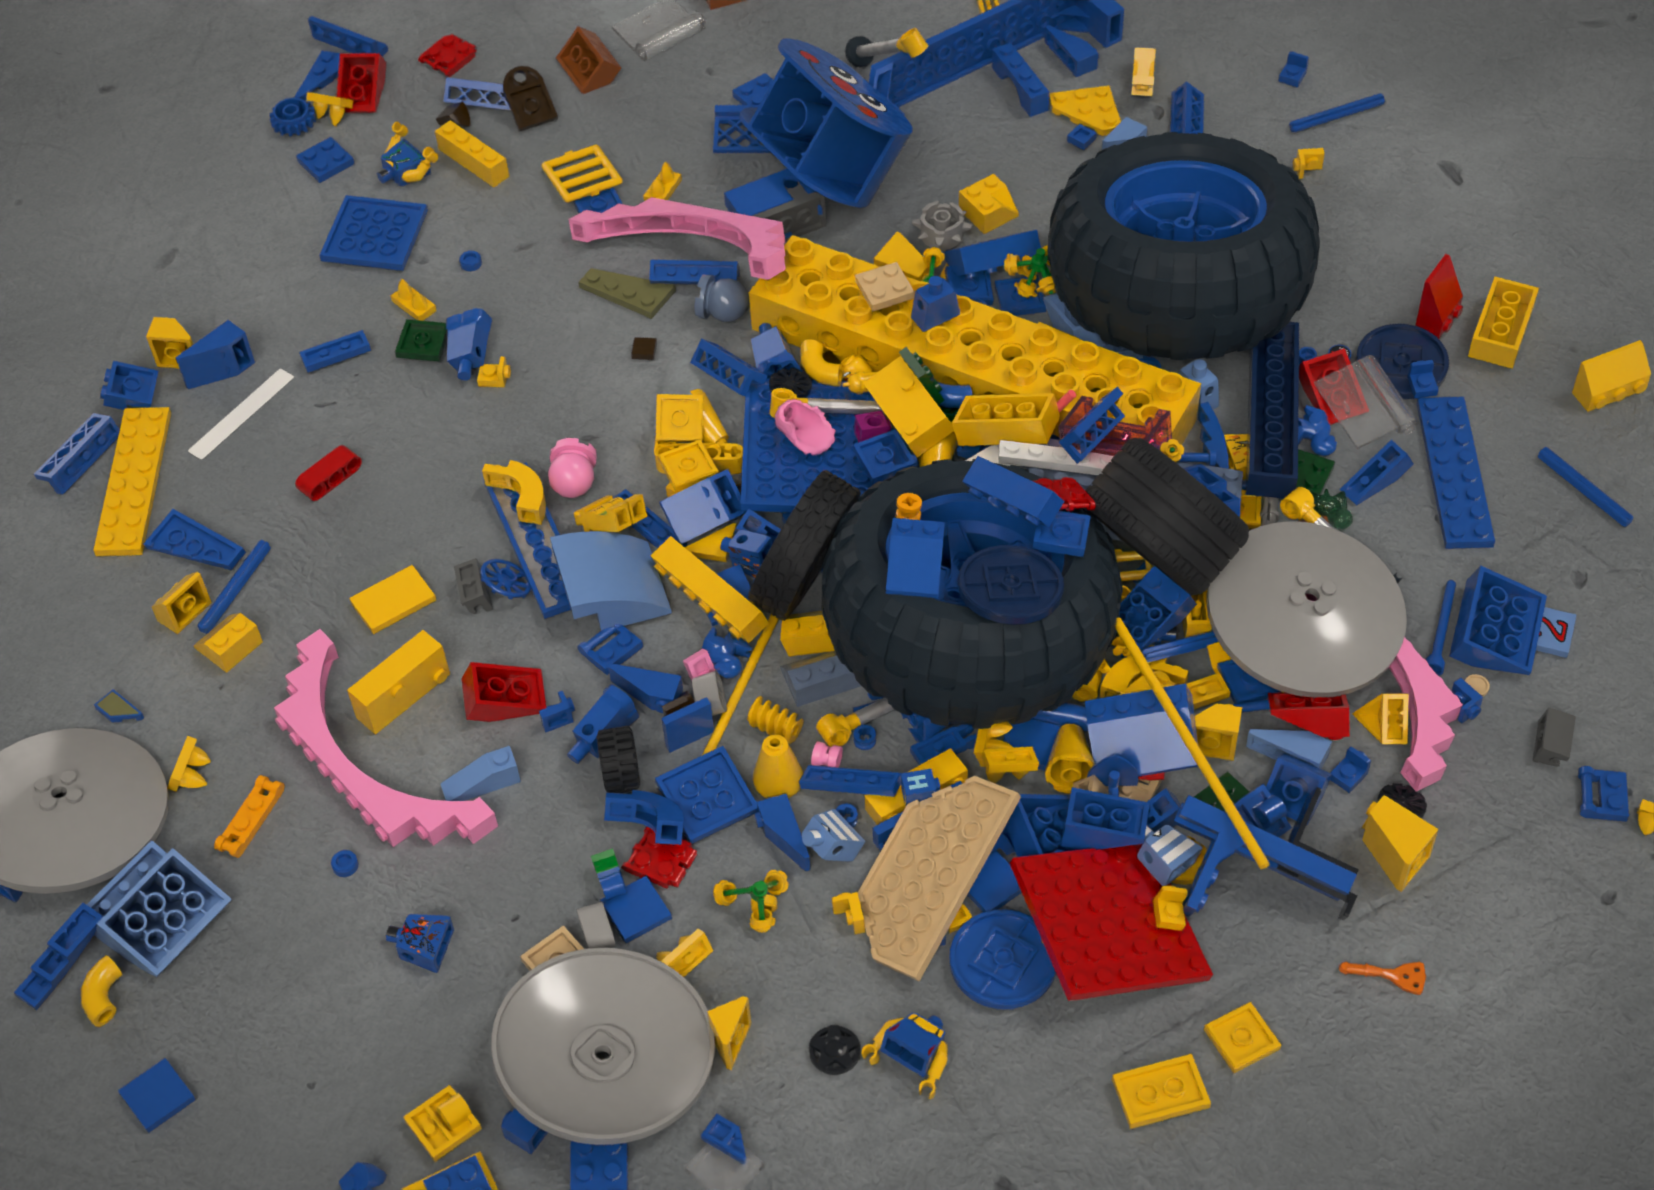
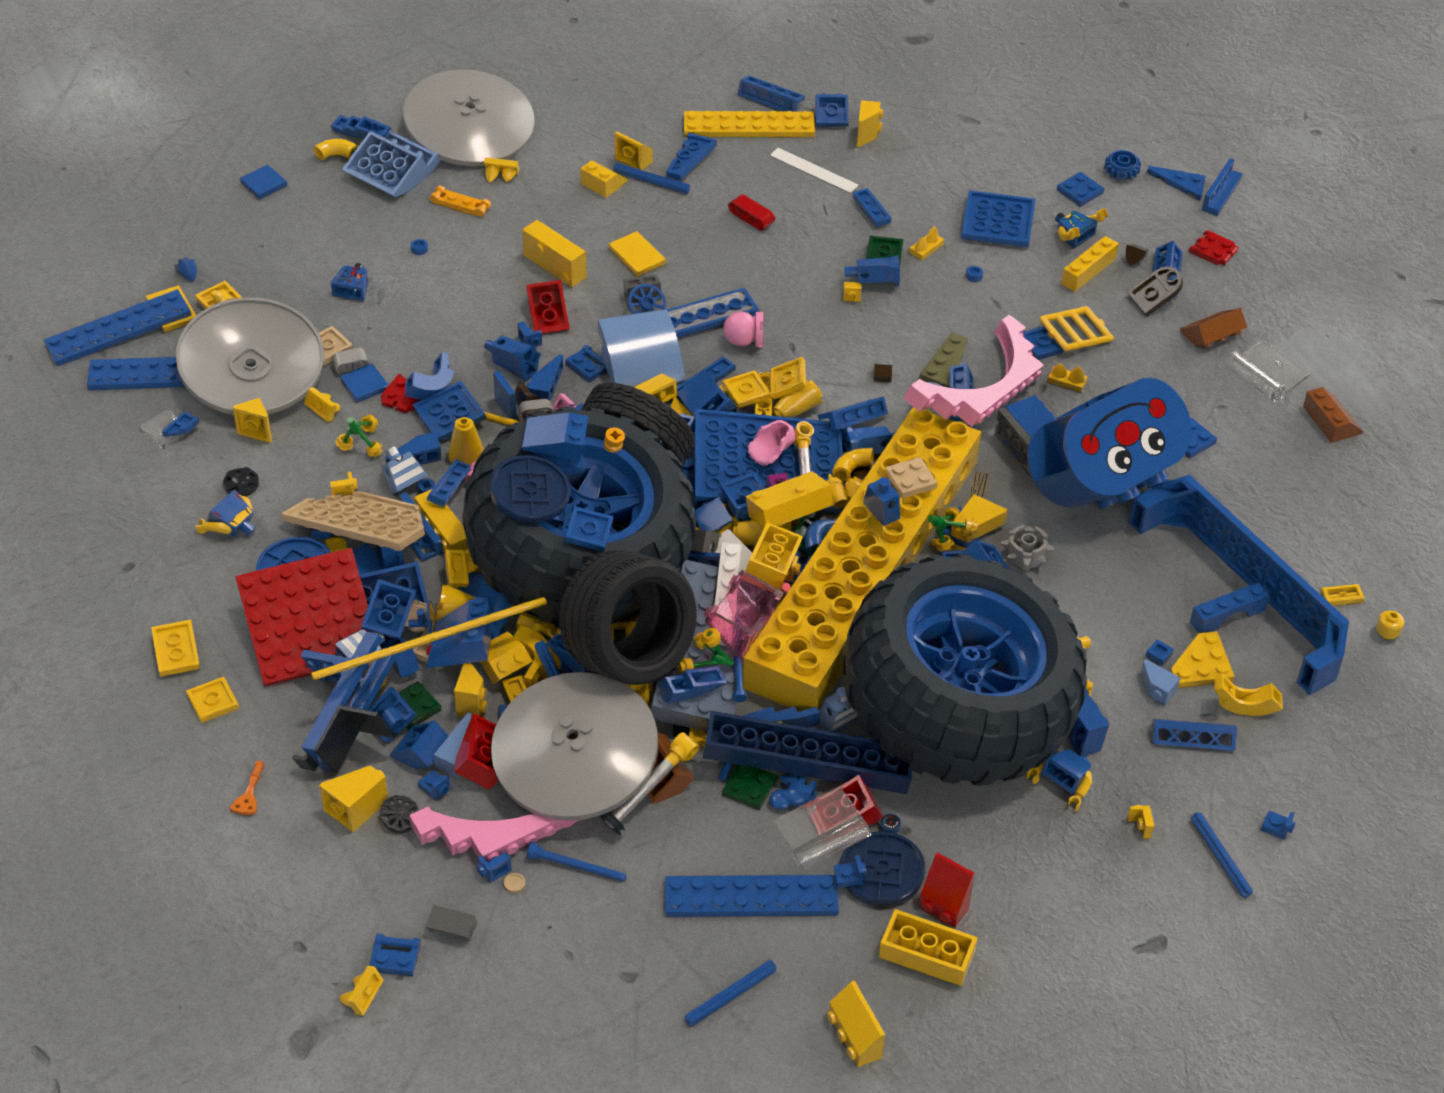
camera: 85 degrees right, 5 degrees down
(117, 708) = (553, 136): tile -> none
(216, 356) = (858, 145): blue slope -> none
(336, 106) = (1138, 182): yellow tile -> none
(361, 80) = (1166, 198): red slope -> none
(388, 810) = (454, 260): bright pink arch -> none
(484, 775) = (479, 305): medium blue slope -> none
(524, 481) = (721, 307): yellow arch -> none
(609, 873) = (387, 364): leg -> none
(611, 513) = (700, 348): yellow hips -> none
(618, 759) = (475, 359): black tyre -> none
(770, 903) = (356, 443): yellow tile -> none
(796, 384) = (830, 445): black wheel -> none
(861, 50) = (1249, 496): piece -> none
(918, 785) = (429, 510): blue brick -> none
(923, 374) = (816, 503): dark green plate -> none
(988, 203) = (1061, 579): yellow slope -> none
(1013, 492) = (622, 494): blue brick -> none
(1070, 492) = (632, 533): red plate -> none
(1072, 51) = (1274, 651): blue slope -> none
(1088, 424) = (742, 583): blue fence -> none
(1169, 908) = (316, 646): yellow bracket -> none
(1306, 353) = (885, 793): blue plate -> none
(1334, 508) = (702, 792): clear green piece -> none
(1377, 473) = (744, 833): blue slope -> none
(1386, 717) = (480, 810): yellow slope -> none
(1498, 623) = (570, 896): blue slope -> none
(1556, 632) = (568, 939): medium blue tile -> none

